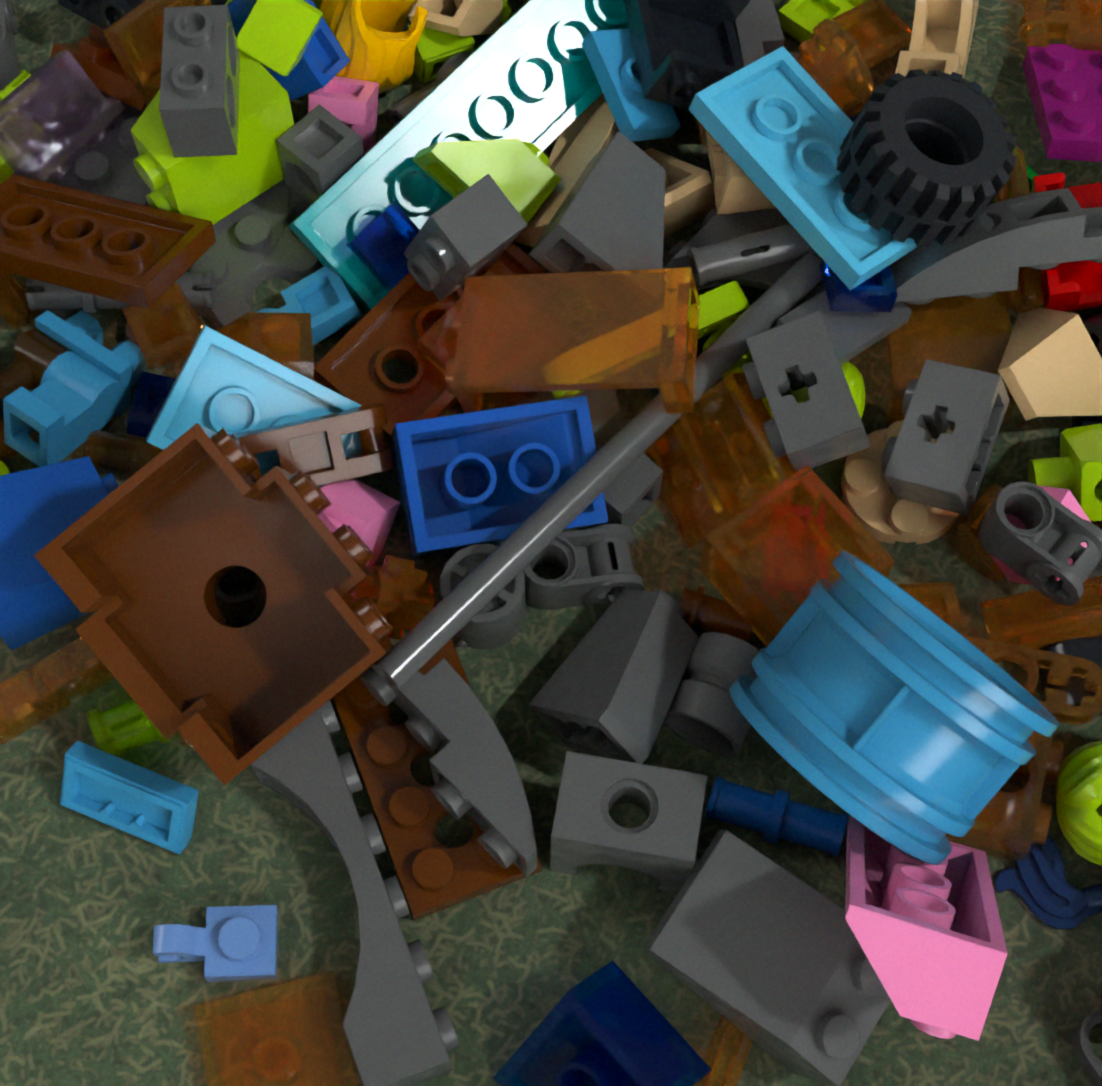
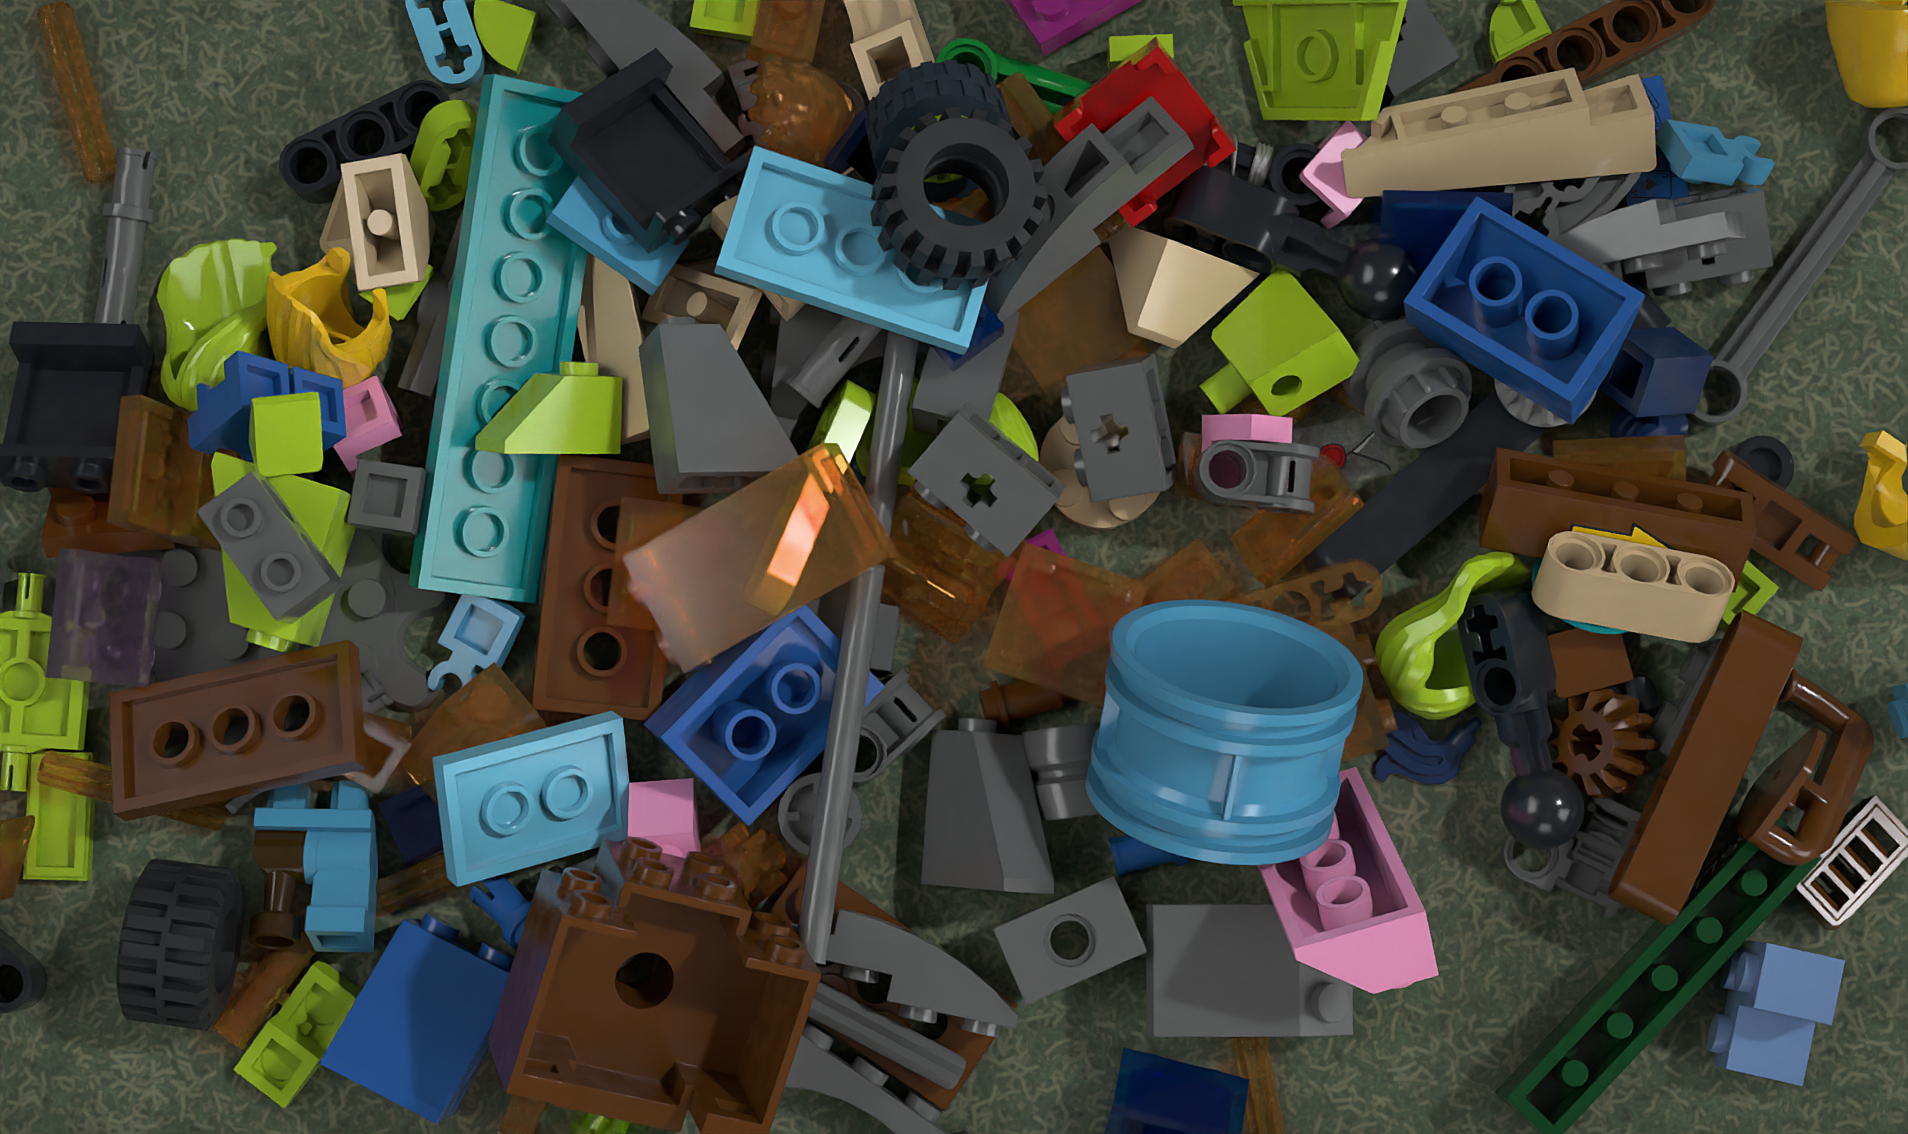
camera: 30 degrees left, 20 degrees up
(317, 445) = (595, 796): plate -> none
(382, 245) = (515, 546): clear blue plate -> none
(397, 786) = (887, 1036): none -> dark grey axle
(463, 238) = (591, 520): dark grey brick -> none

